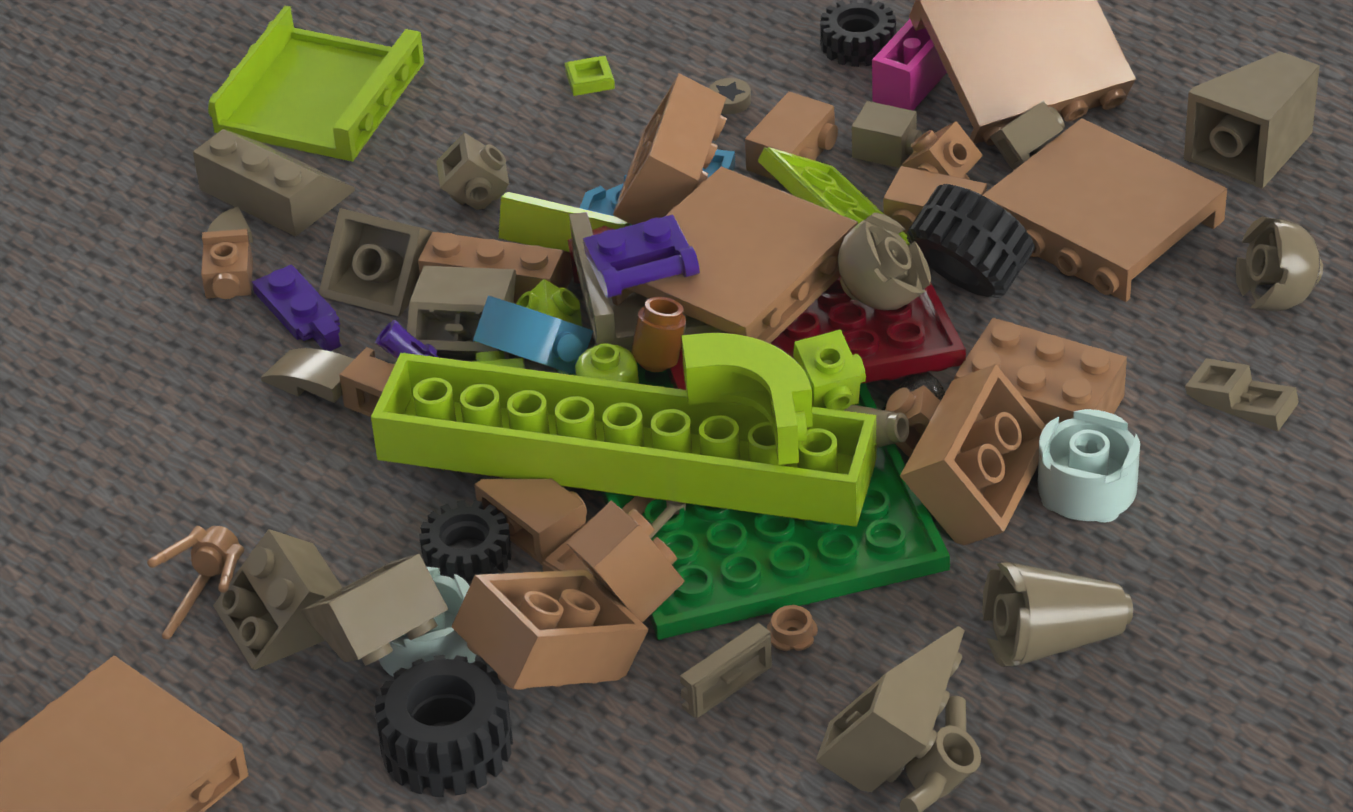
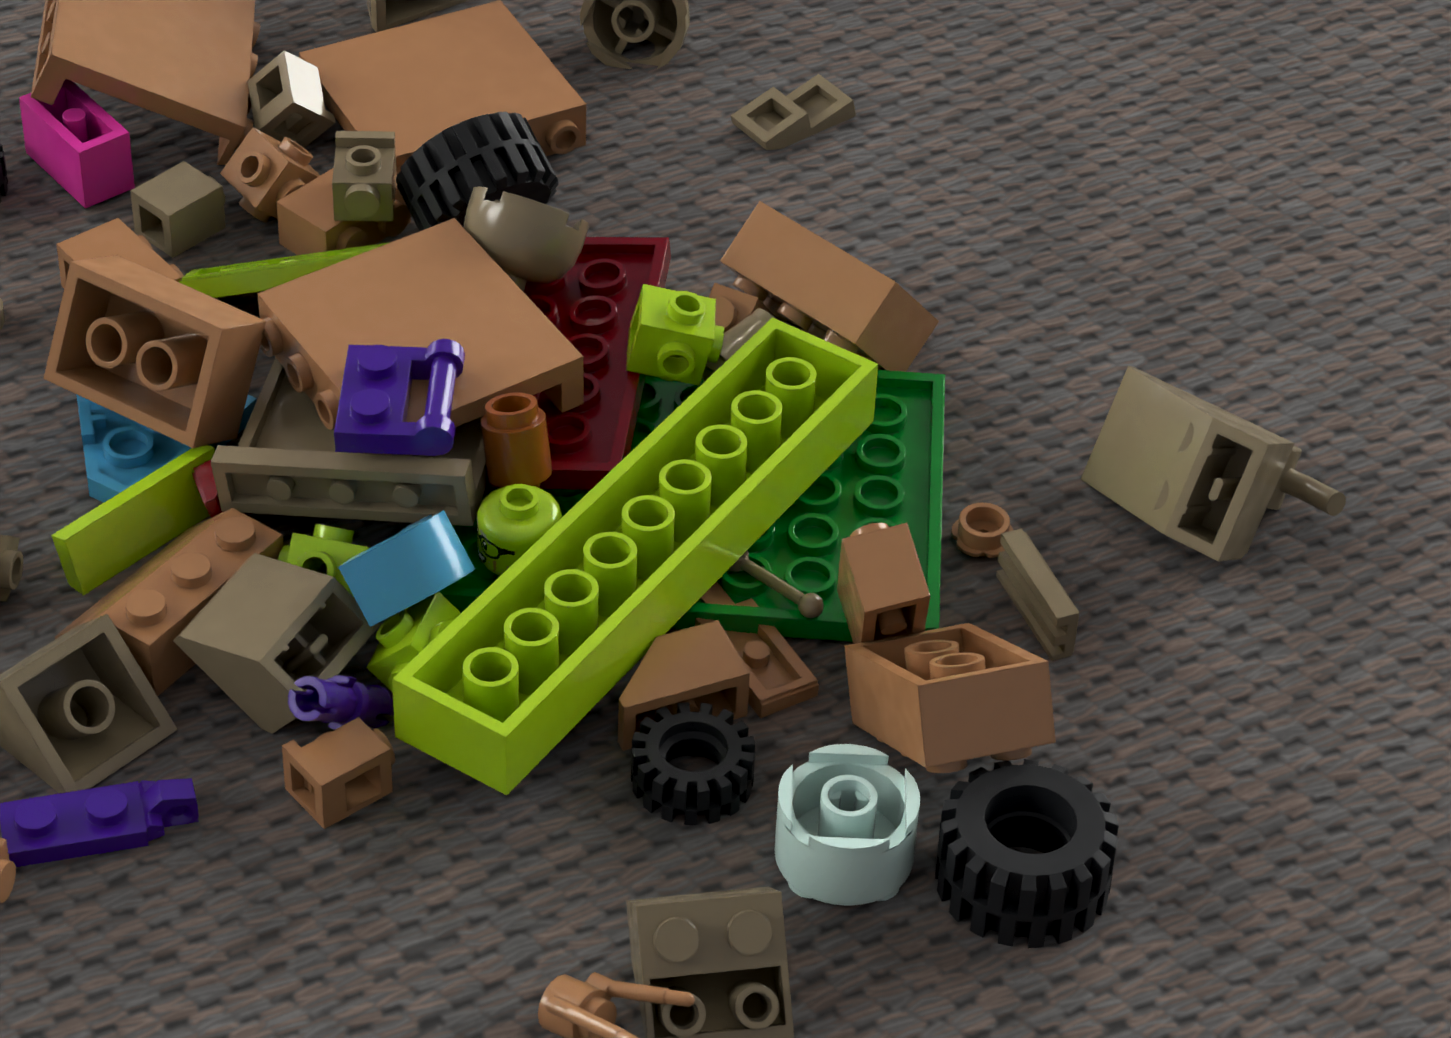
camera: 75 degrees left, 0 degrees up
(310, 371) = (244, 835): dark tan slope -> none
(378, 609) = (870, 821): dark tan slope -> none
(752, 374) = (698, 365): lime arch -> none
(920, 180) = (364, 176): none -> dark tan brick
(1049, 370) = (706, 212): medium nougat brick -> none
(1049, 612) = (1079, 338): dark tan cone -> none
(1088, 466) = (877, 222): light aqua brick -> none

